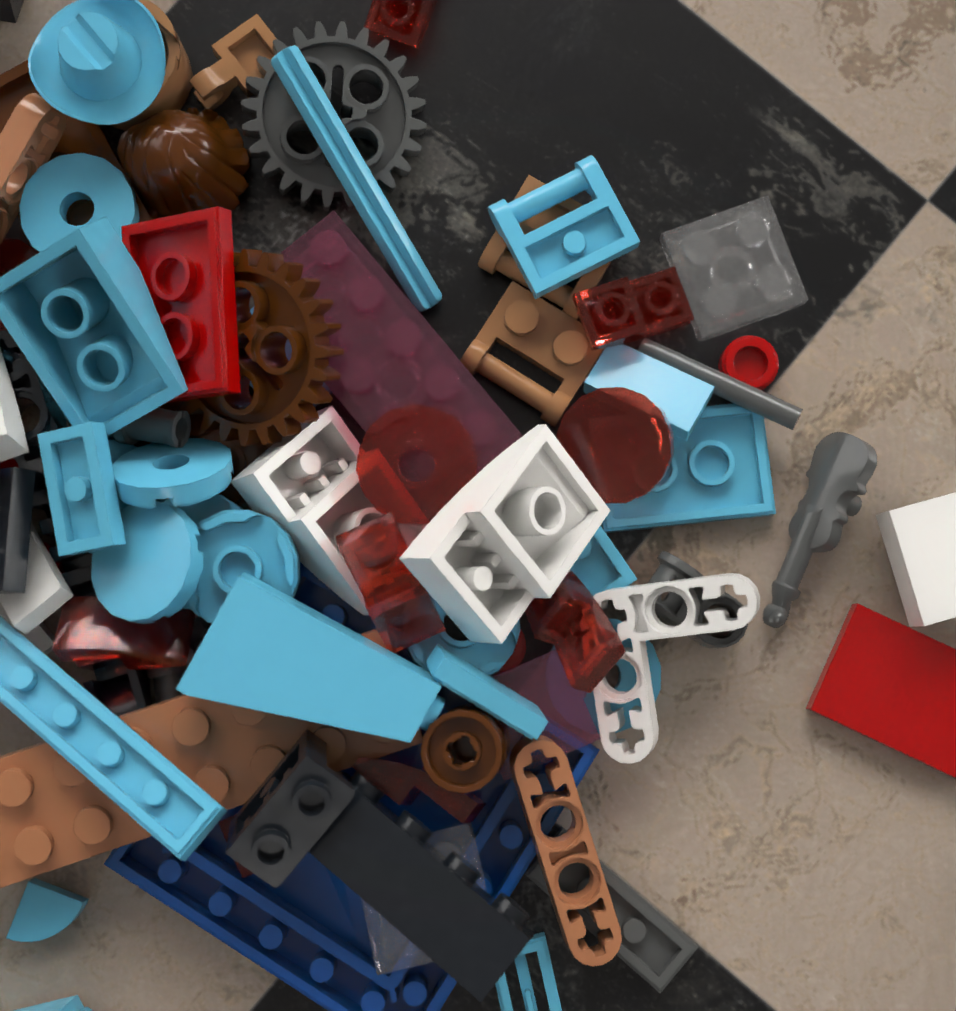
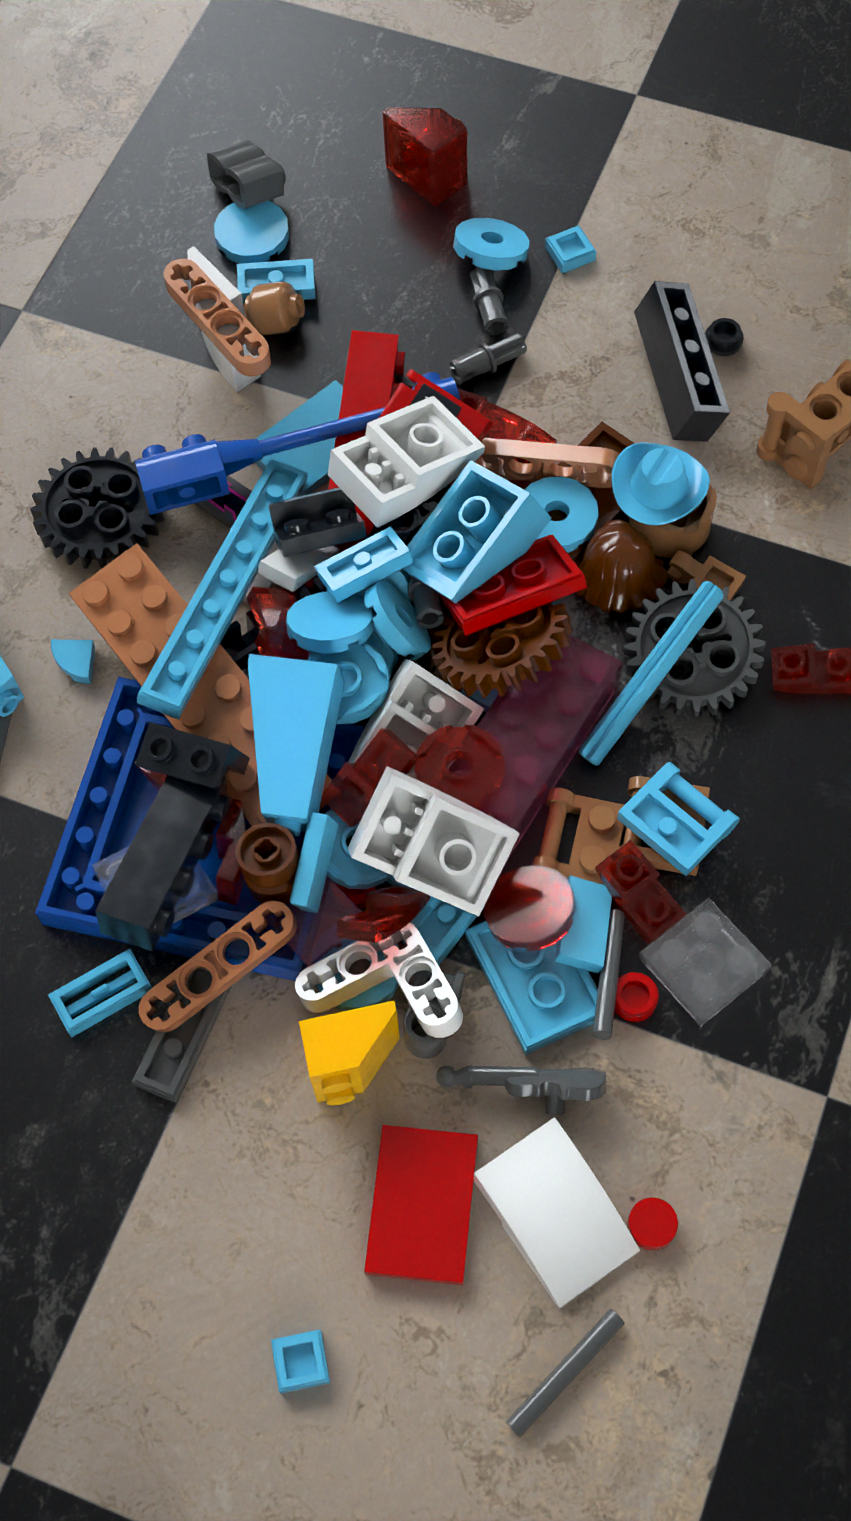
camera: 75 degrees right, 20 degrees down
(728, 727) = (348, 1049): none -> yellow slope

